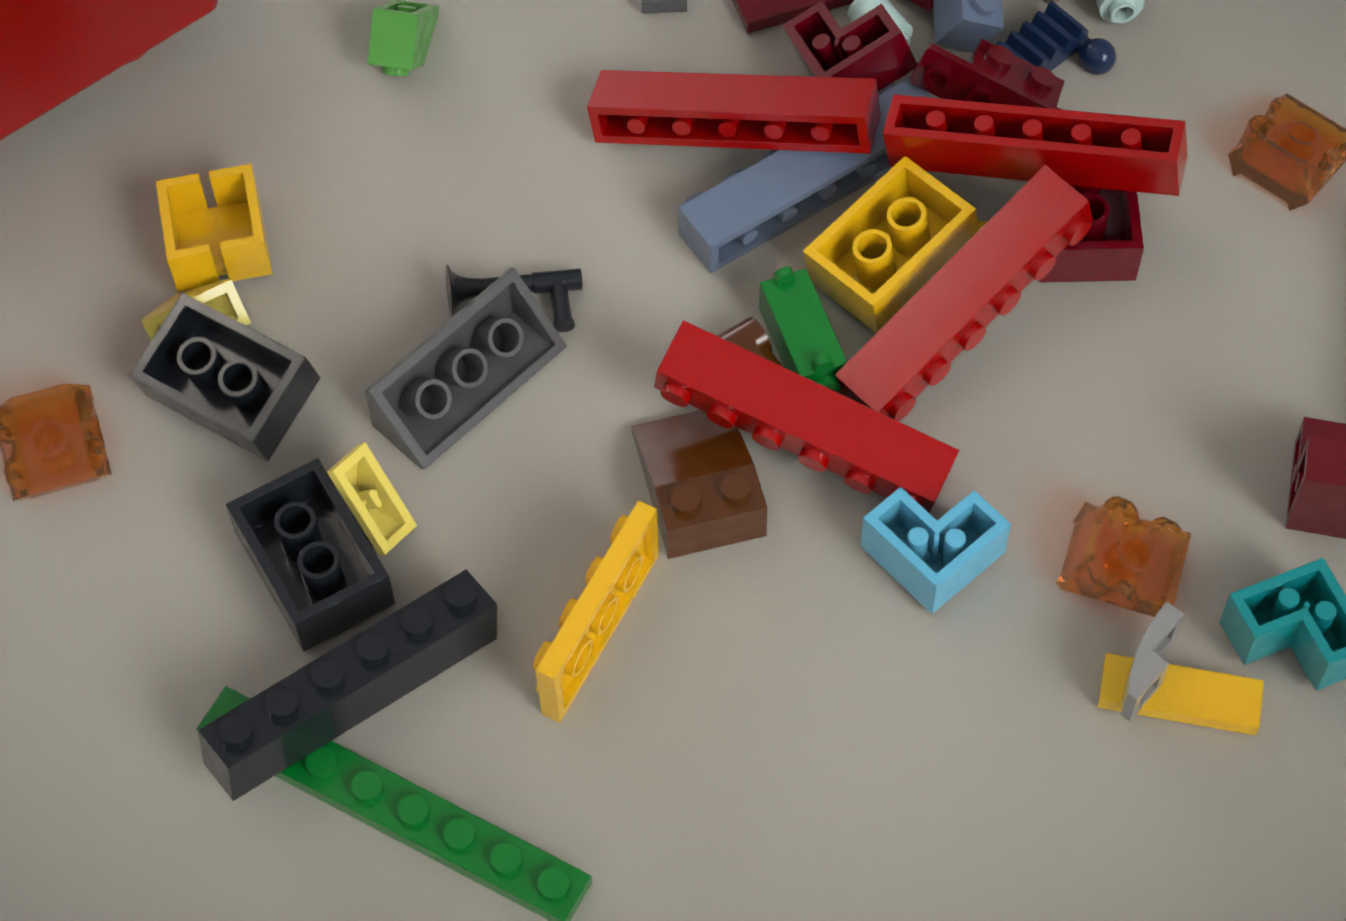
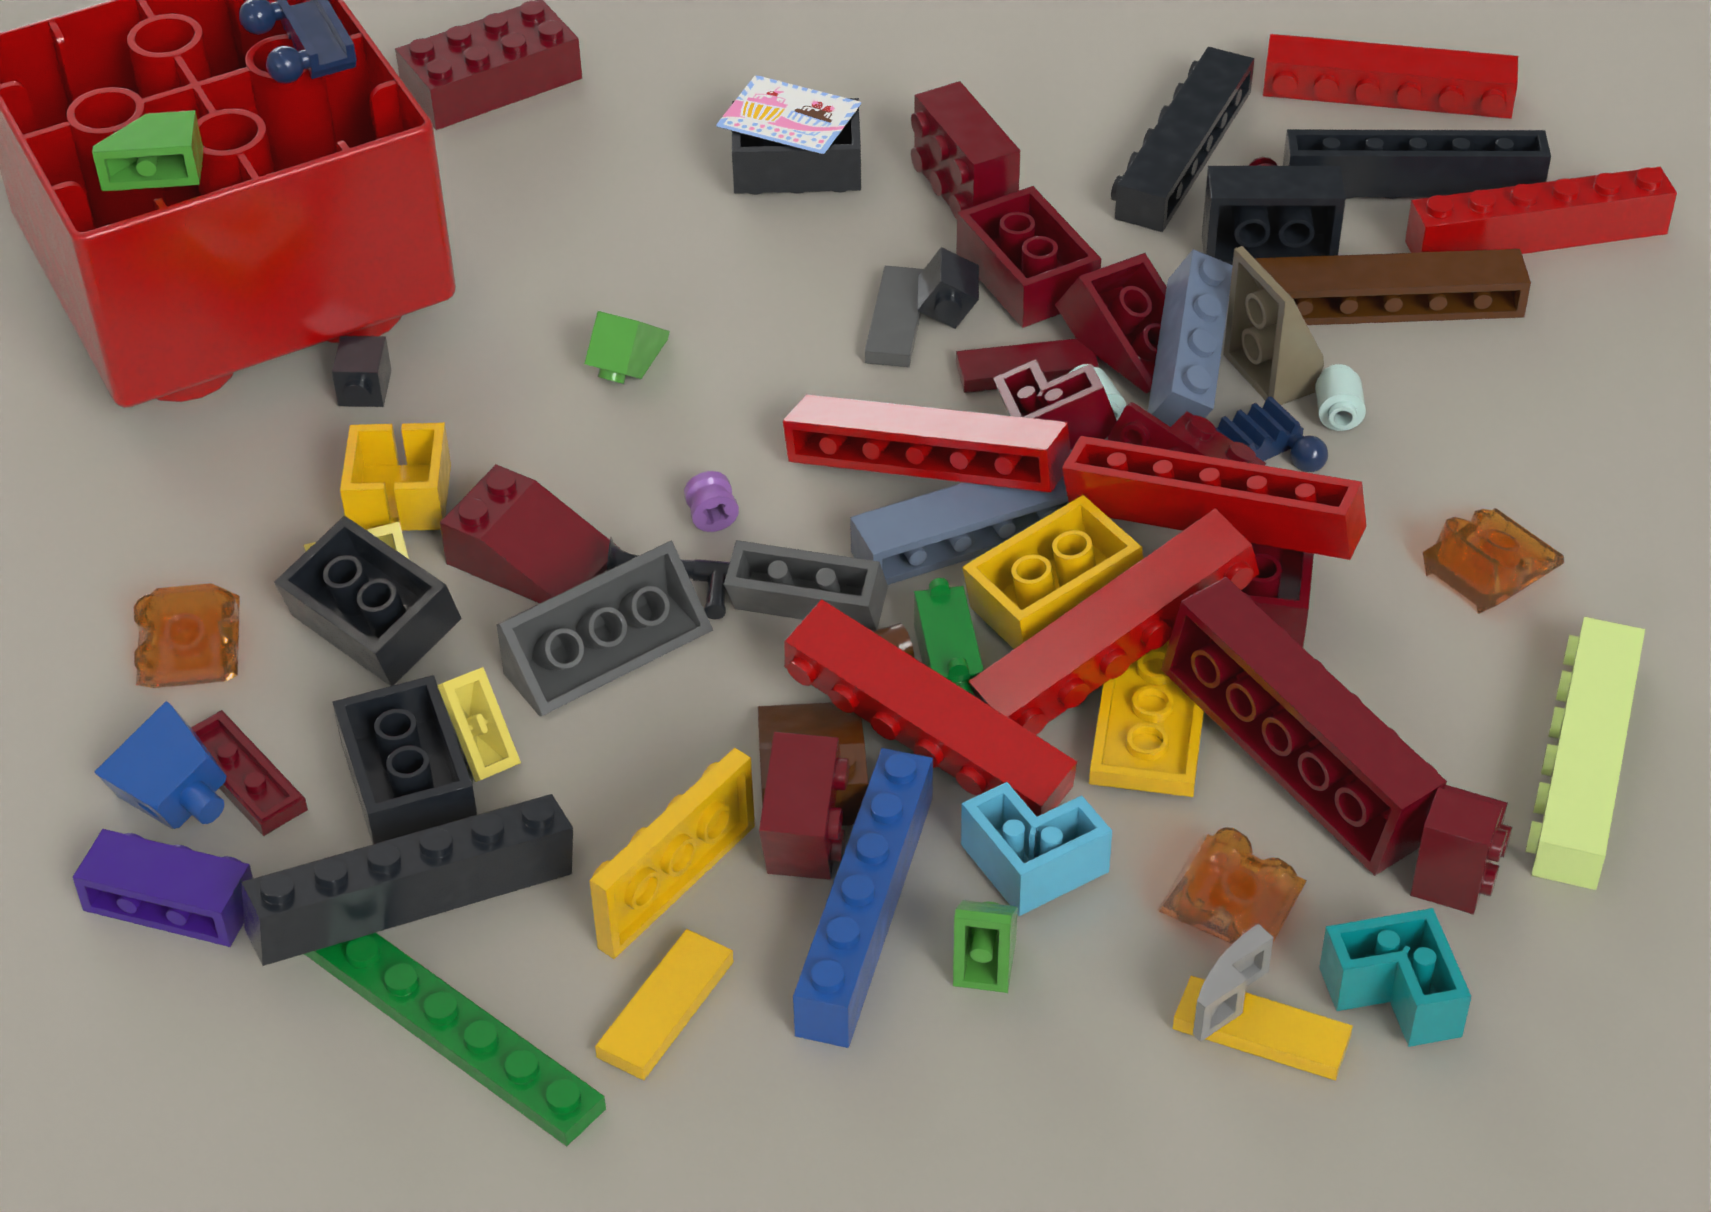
camera: 10 degrees right, 15 degrees down
(77, 599) = (166, 771): none -> blue torso
(109, 724) = (163, 886): none -> dark purple brick
(142, 103) = (361, 371): none -> black brick
(147, 581) = (251, 778): none -> dark red tile
(360, 278) = (522, 537): none -> dark red slope
(532, 203) = (711, 501): none -> medium lavender wheel
(622, 765) = (664, 1004): none -> yellow tile
(651, 289) = (795, 580): none -> dark grey brick
(712, 543) = (799, 816): none -> dark red brick
(786, 623) = (863, 899): none -> blue brick
(912, 654) = (984, 945): none -> bright green slope
(1015, 384) = (1146, 731): none -> yellow plate
(1161, 376) = (1301, 725): none -> dark red brick

